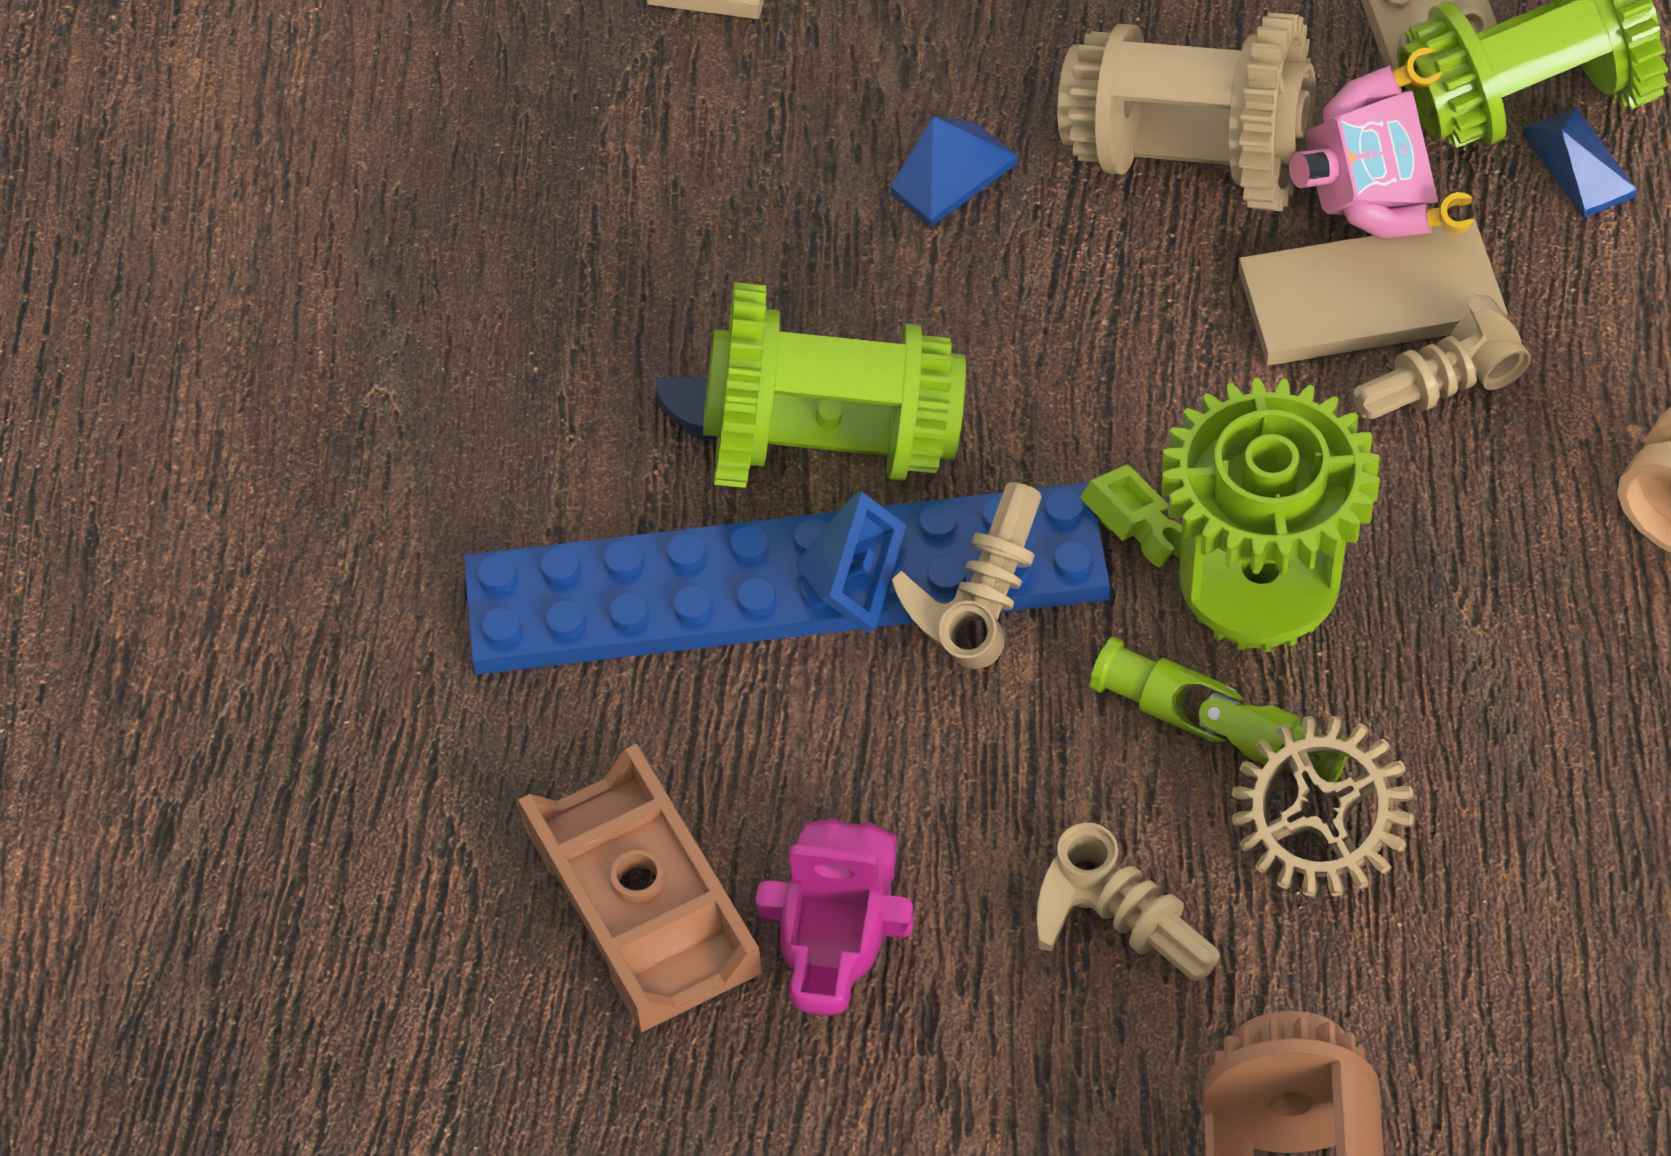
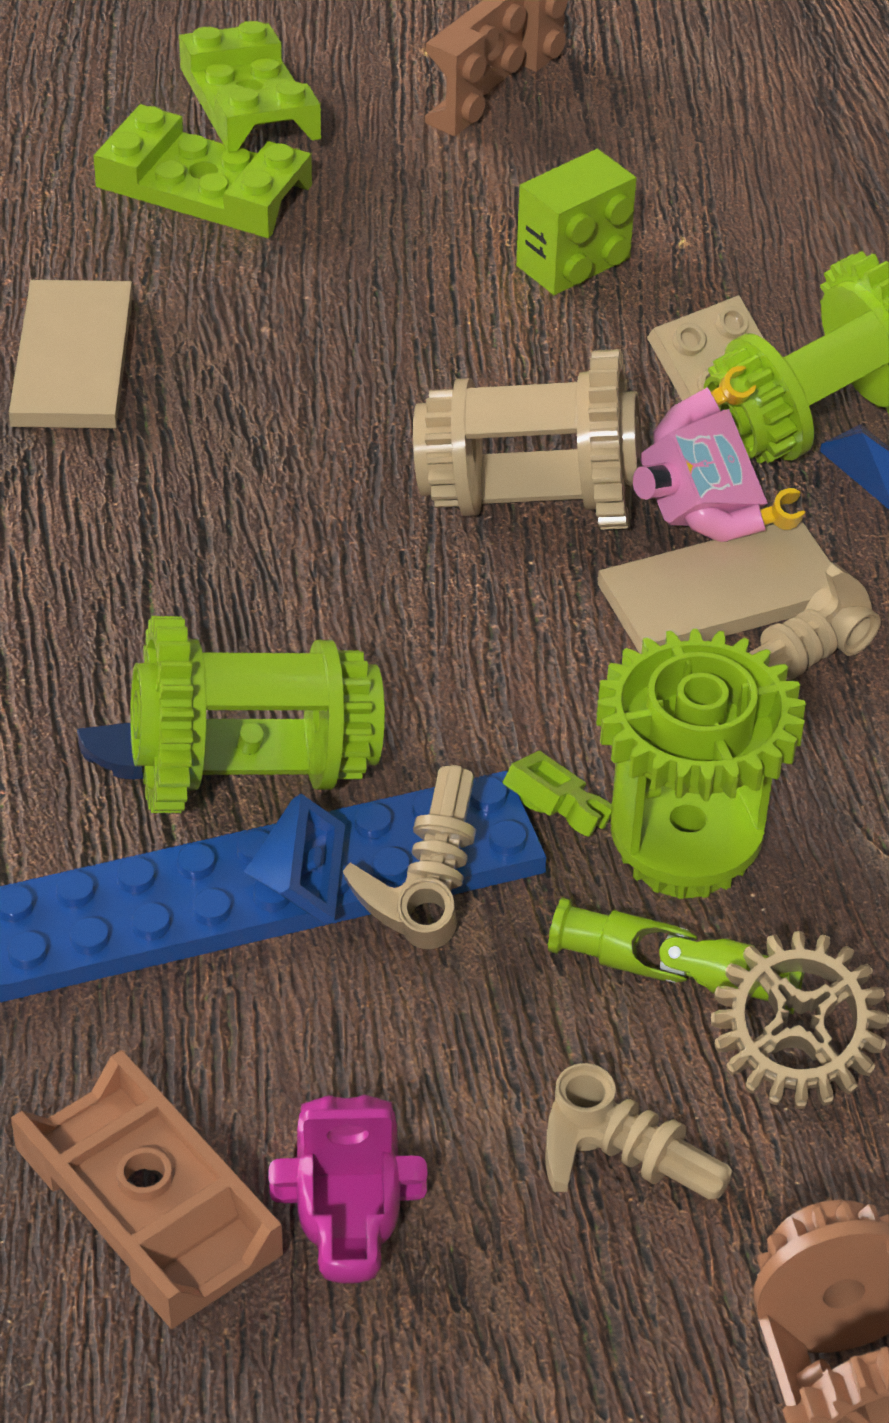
camera: 15 degrees left, 10 degrees down
(949, 168) = (316, 528): blue slope -> none

